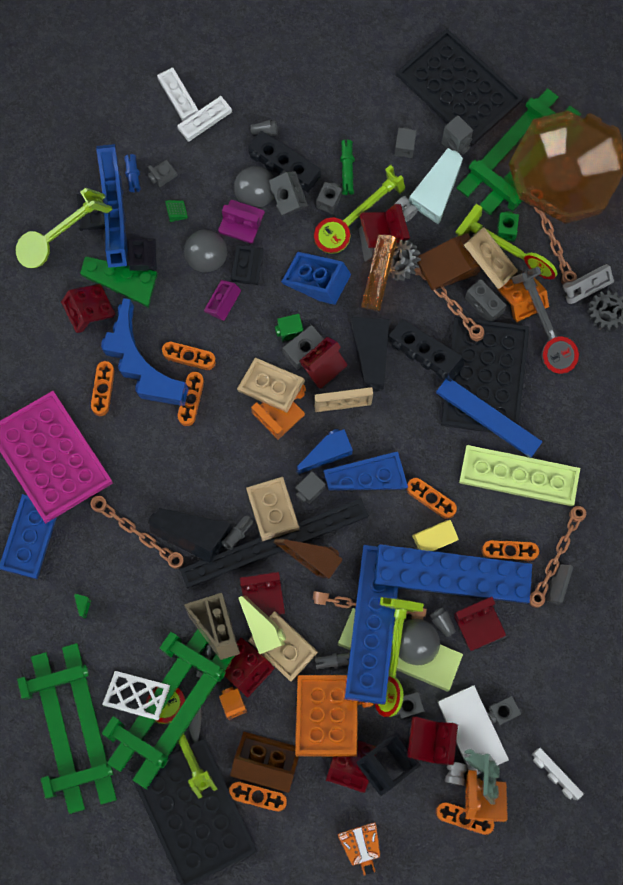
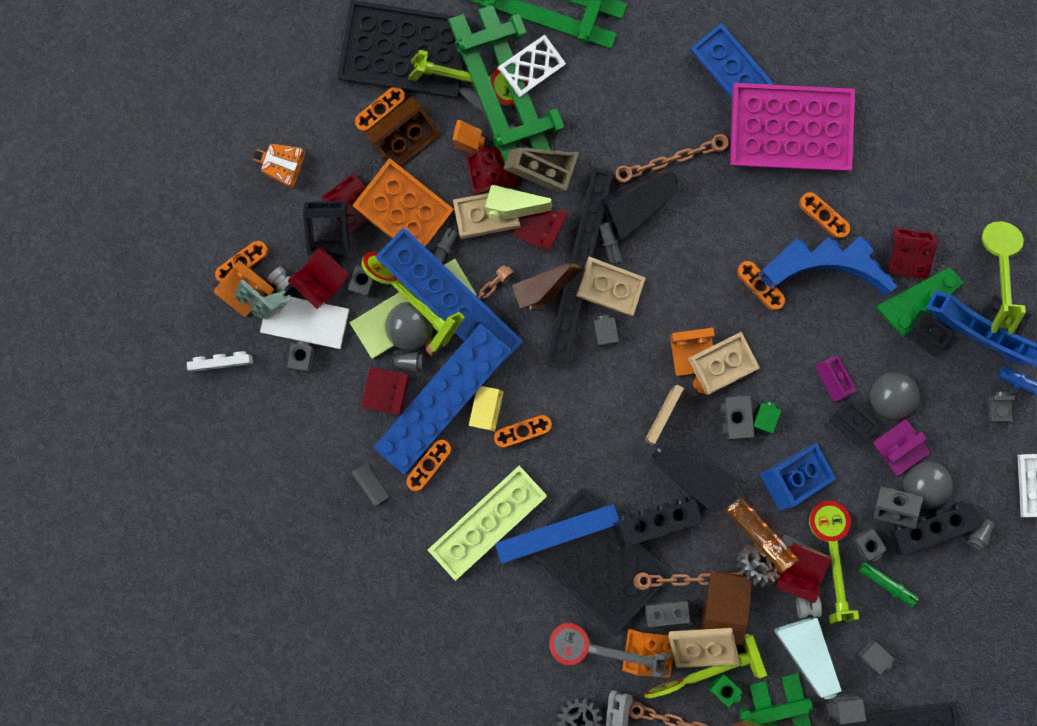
camera: 130 degrees right, 10 degrees up
(83, 604) = (640, 71): green slope -> none
(174, 356) = (794, 325): orange beam -> none
(176, 210) = (954, 395): green slope -> none
(323, 362) = (711, 423): dark red bracket -> none
(330, 449) = (628, 372): blue slope -> none
(370, 474) = (580, 395): blue wing -> none
(573, 517) = (397, 507): nougat piece -> none

